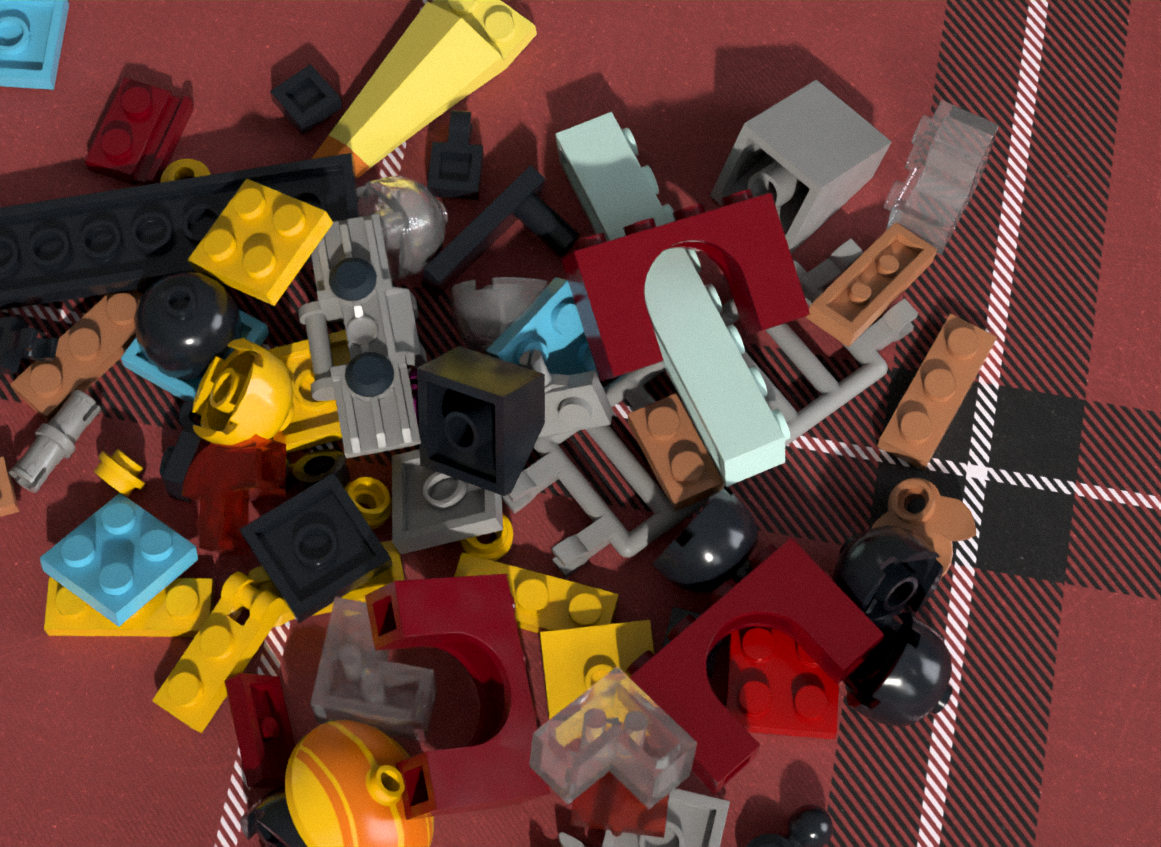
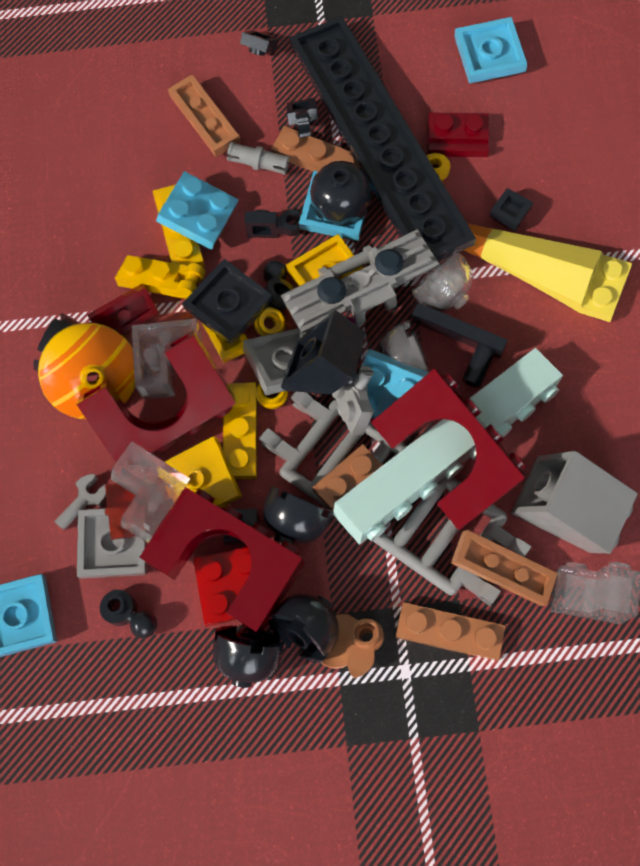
camera: 80 degrees right, 5 degrees up
(120, 471) = (249, 194): yellow plate -> none
(225, 482) = (252, 247): clear red brick -> none
(244, 396) = (300, 235): yellow cylinder -> none
(260, 241) = (397, 207): yellow plate -> none
(456, 165) = (500, 304): black plate -> none

